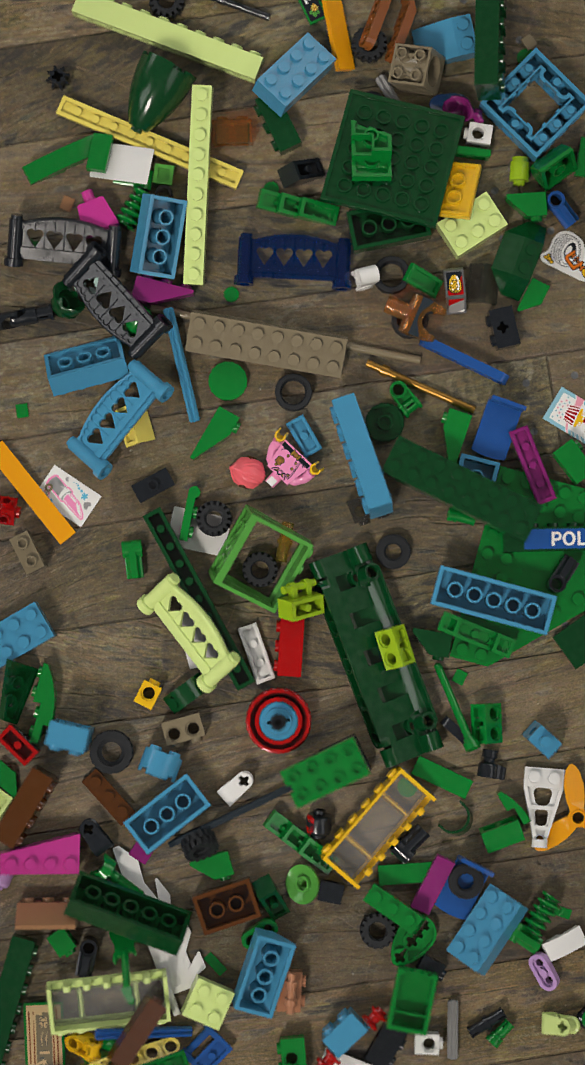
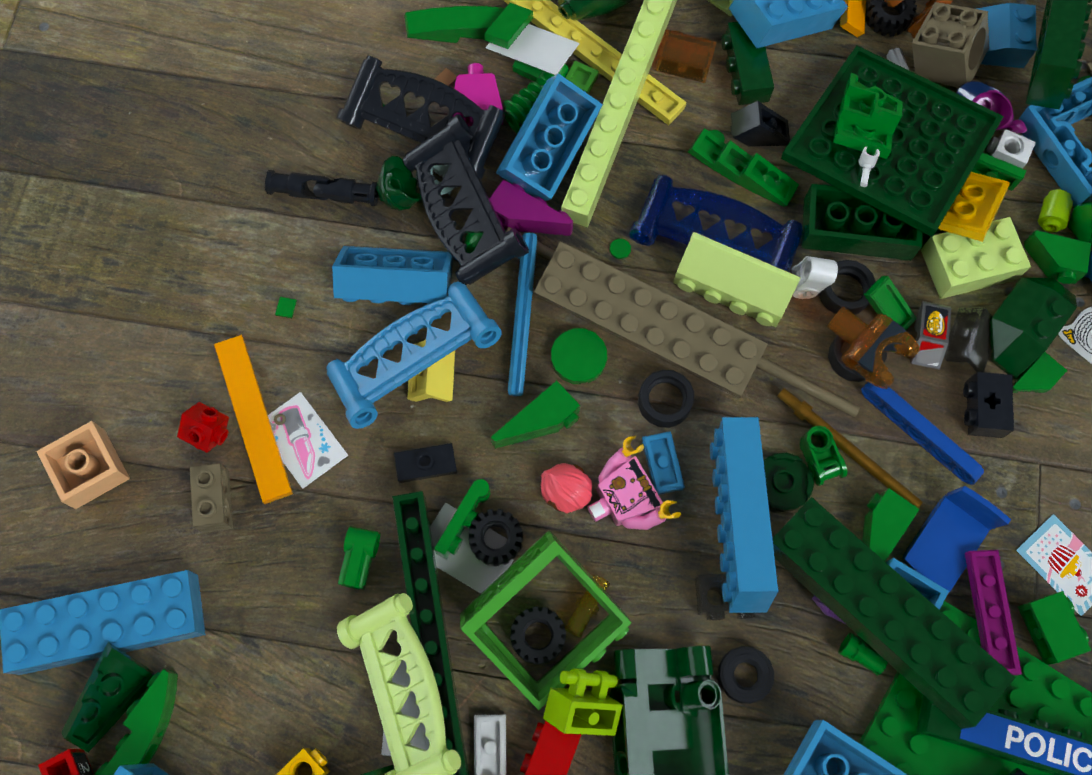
camera: 10 degrees right, 15 degrees down
(314, 297) = (735, 280): none -> yellowish green slope
(379, 189) = (867, 162): none -> white hand

